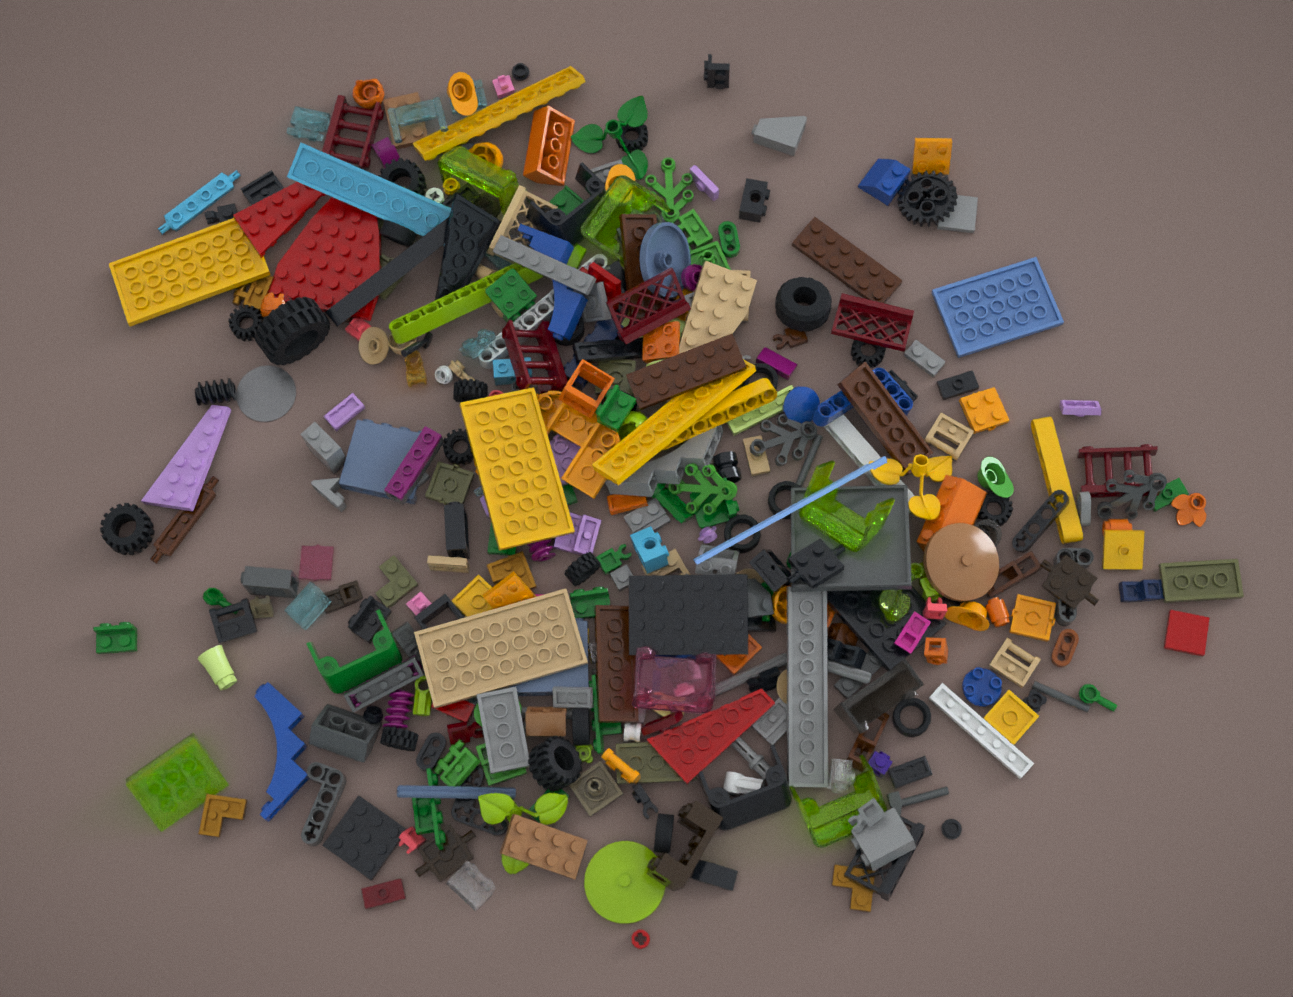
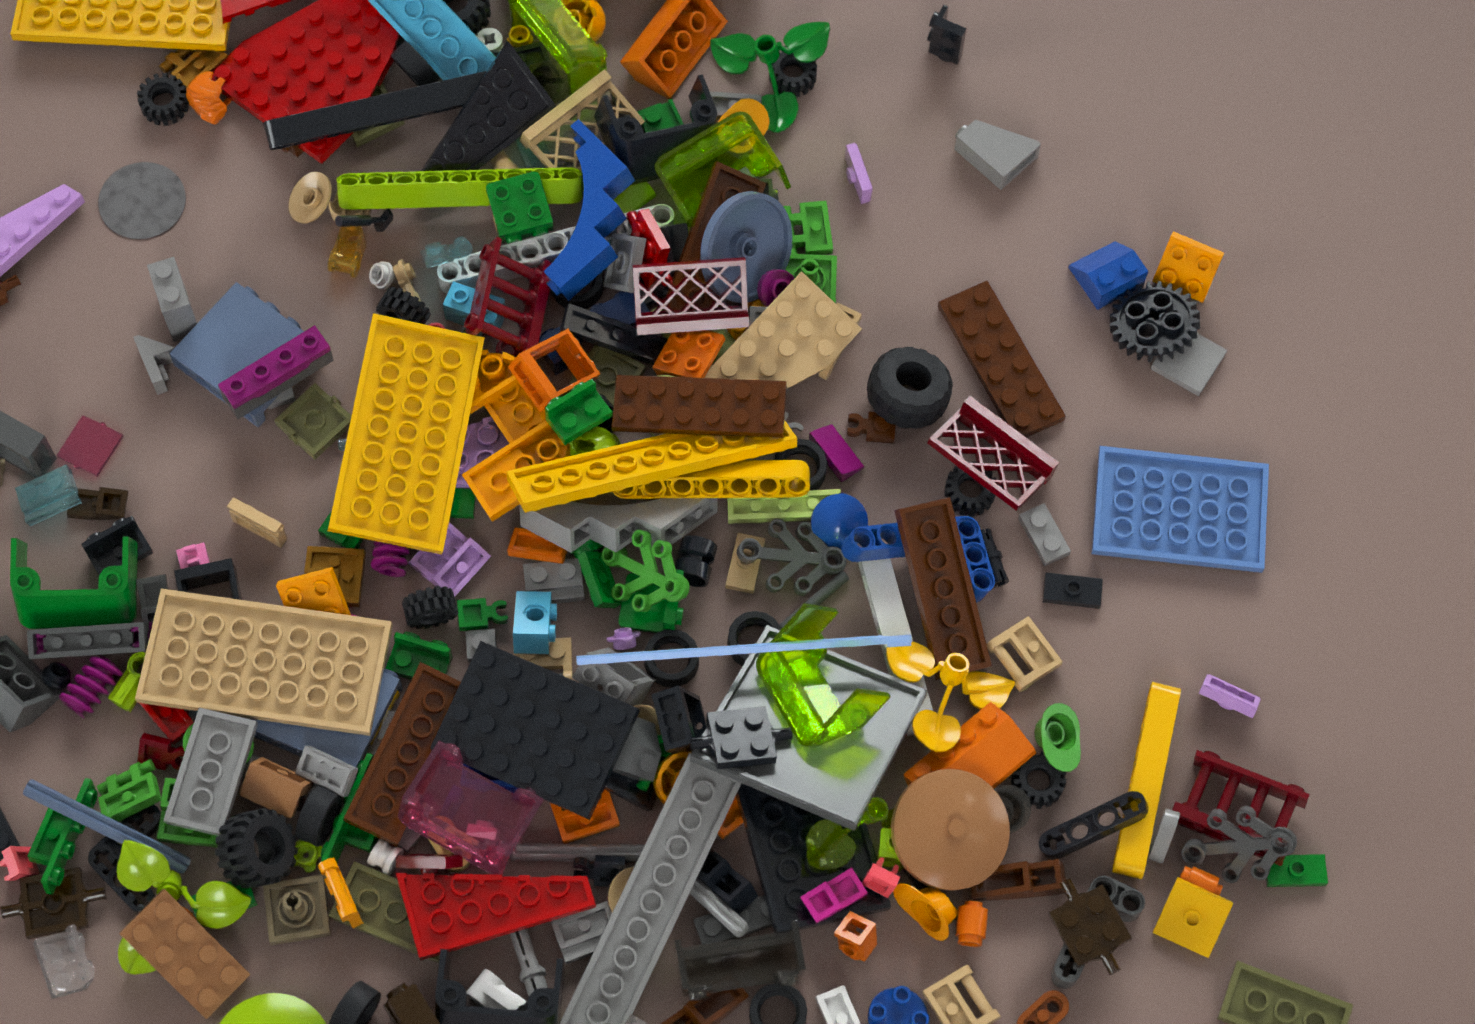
camera: 20 degrees right, 5 degrees down
(215, 392) = (75, 169): black piece -> none
(292, 331) = (209, 130): black tyre -> none
(344, 412) = (228, 266): lavender plate -> none
(356, 328) = (300, 165): coral tile -> none
(399, 738) = (71, 721): black tyre -> none
(400, 582) = (182, 522): olive plate -> none
(430, 751) = (105, 758): black plate -> none
(451, 454) = (338, 373): black tyre -> none
(456, 530) = (289, 483): black window -> none
(471, 599) = (260, 581): yellow plate -> none
(544, 265) = (580, 185): light grey plate -> none
(640, 796) = (352, 949): black plate -> none
(670, 192) = (806, 166): bright green plant -> none
(729, 240) = (854, 262): green plate -> none
(754, 190) = (918, 210): black brick -> none
(842, 633) = (739, 855): reddish brown bracket -> none
(984, 410) = (1092, 640): light orange plate -> none
(1032, 617) = (1017, 954): light orange plate -> none
(1141, 591) = (1192, 987): dark blue slope -> none
(1188, 511) = (1314, 906): orange plate -> none

